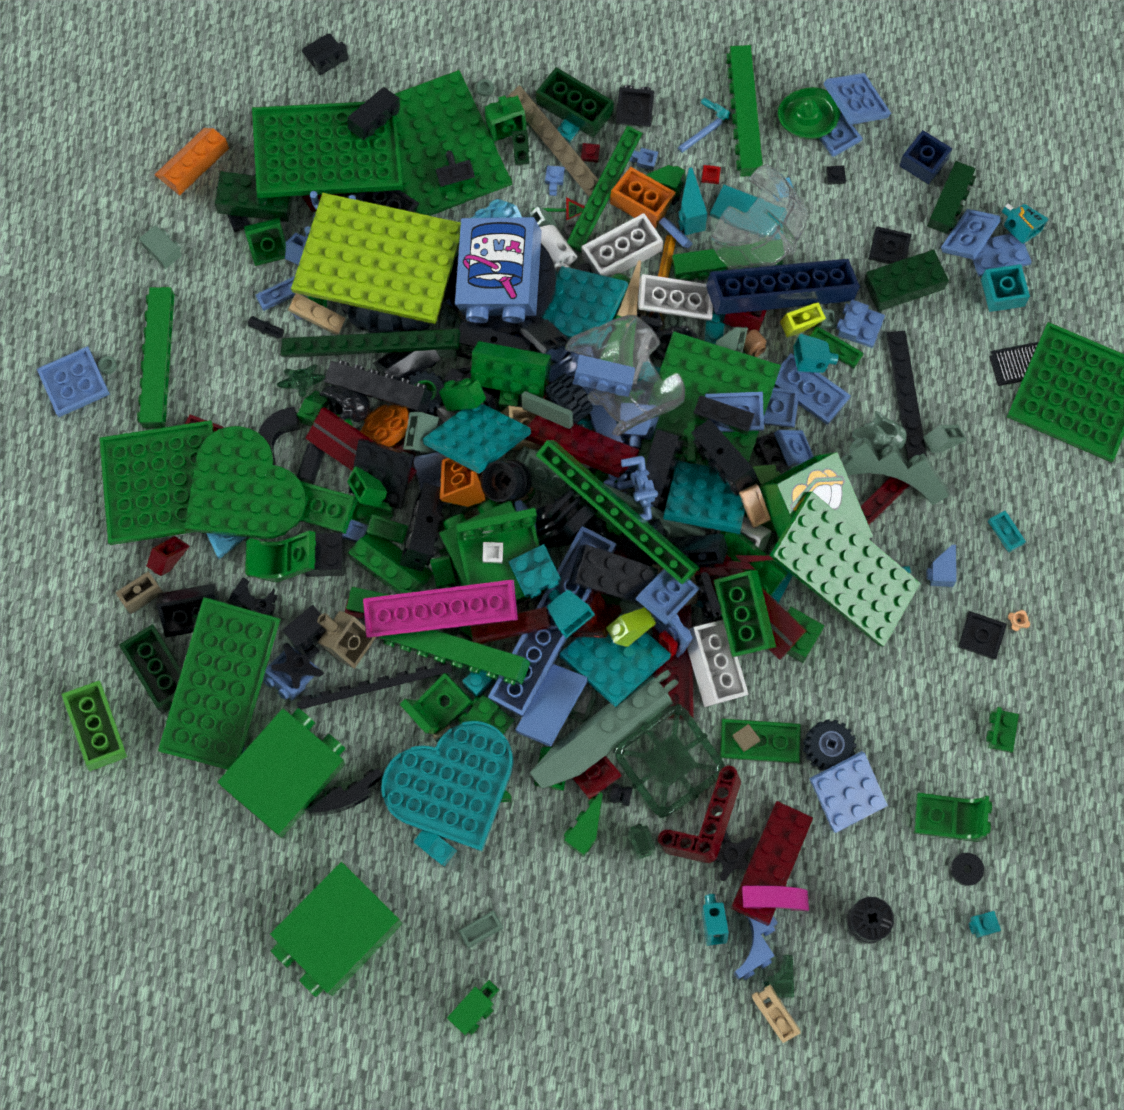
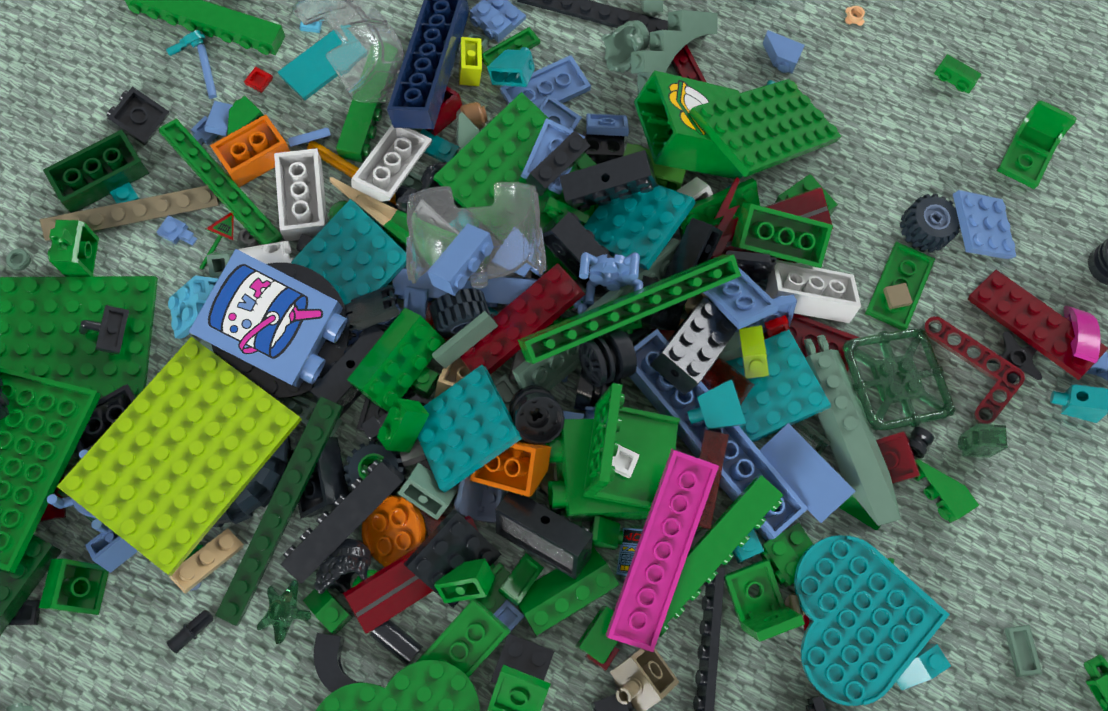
camera: 75 degrees left, 0 degrees up
(276, 294) = (151, 595): medium blue tile -> none
(521, 147) = (118, 249): dark green leg -> none
(535, 571) = (662, 424): teal plate -> none
(590, 152) = (165, 182): dark red plate -> none
(656, 161) = (218, 118): none -> medium blue tile
(693, 210) = (288, 105): teal slope -> none
(754, 505) = (672, 175): light nougat tile -> none
(975, 865) = (1088, 153): black piece -> none
(982, 635) = (858, 51): black tile -> none

